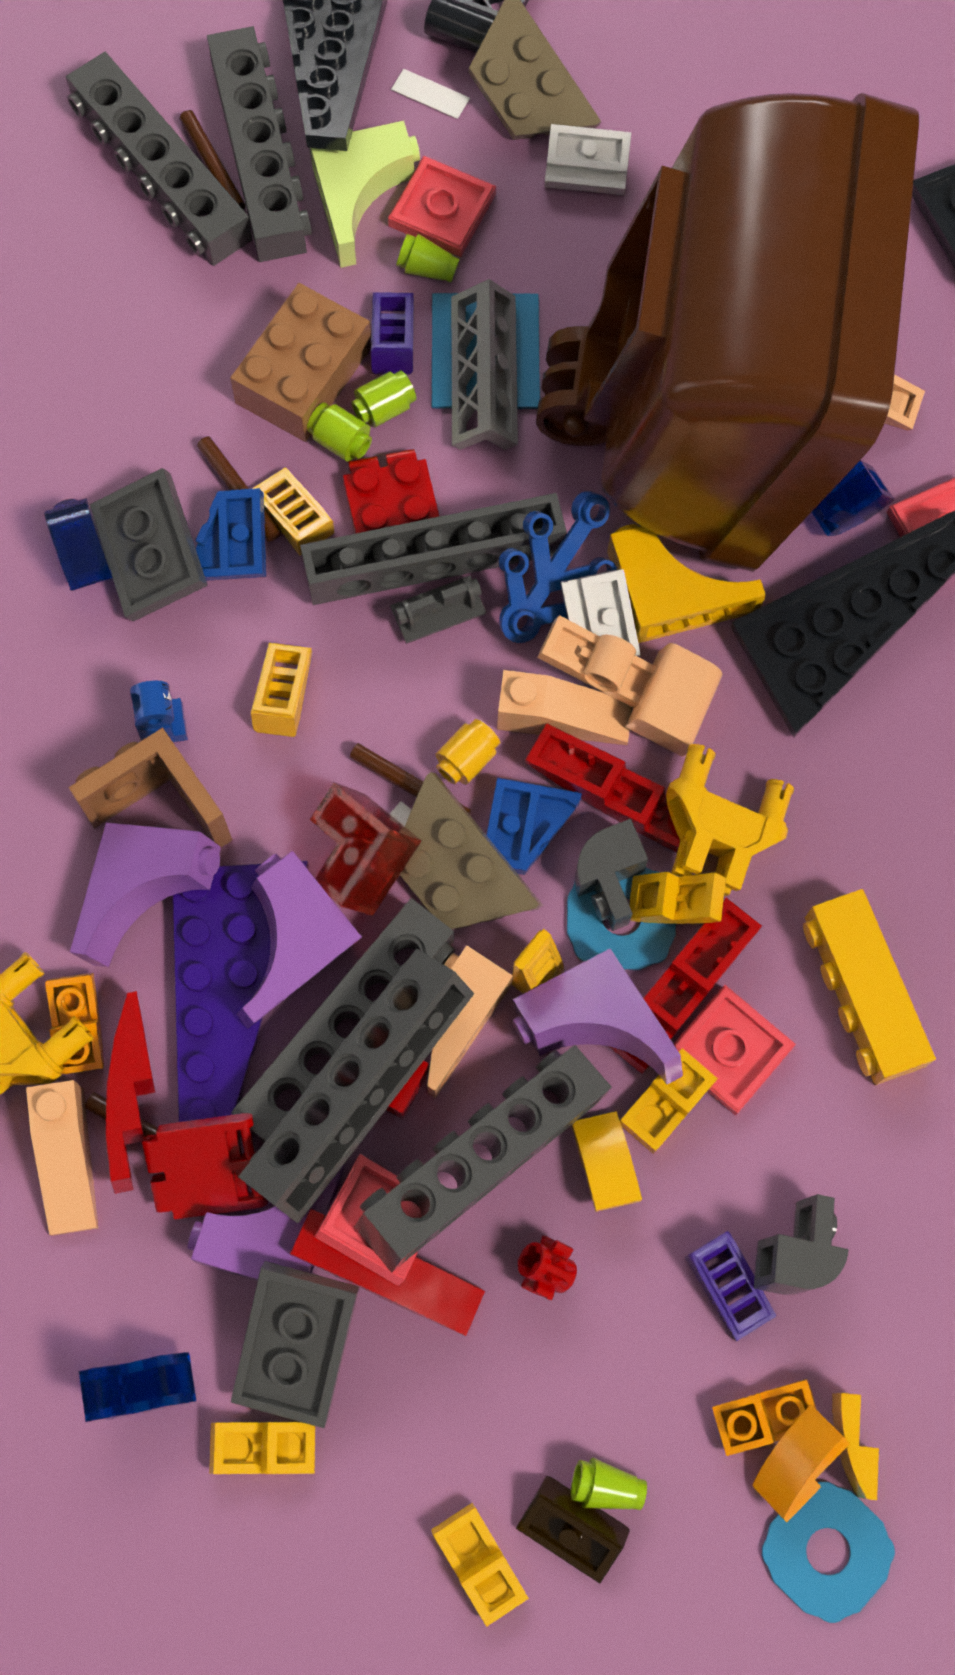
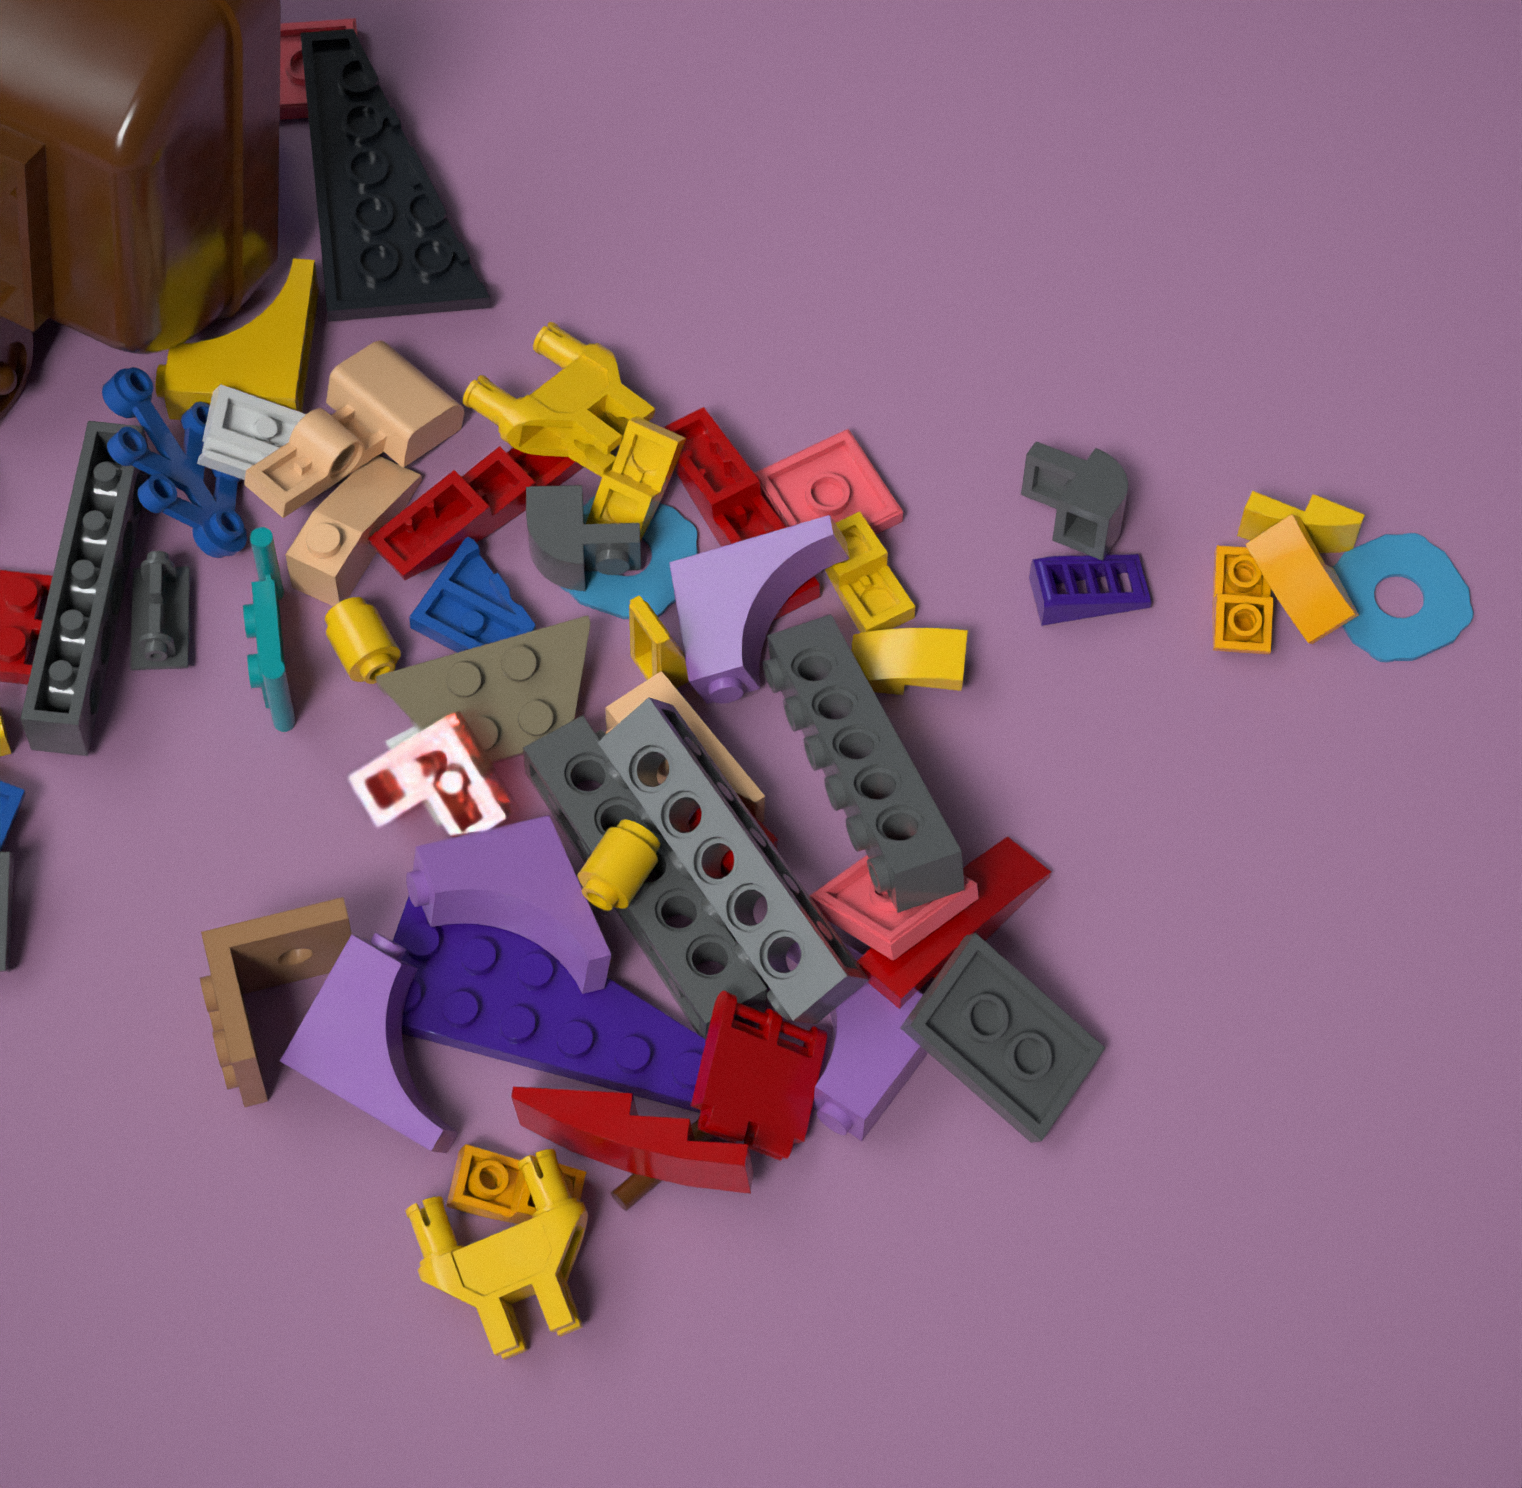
camera: 70 degrees left, 10 degrees down
(63, 1156) = (678, 1243): light nougat slope -> none
(137, 1387) = (991, 1228): clear blue brick -> none
(156, 710) = (159, 961): blue leg -> none
(262, 1448) = (1103, 1126): yellow slope -> none
(277, 715) = (214, 842): yellow slope -> none
(325, 1002) = (619, 865): none -> yellow brick
(388, 770) = (346, 736): reddish brown bar -> none
(453, 682) = (263, 622): none -> teal plate
(479, 1564) = (1305, 940): yellow slope -> none
(547, 1267) = (1007, 755): red gear -> none
(576, 1534) = (1298, 833): dark brown slope -> none
(606, 1486) = (1263, 781): lime cone -> none
(868, 987) = (813, 333): yellow brick -> none

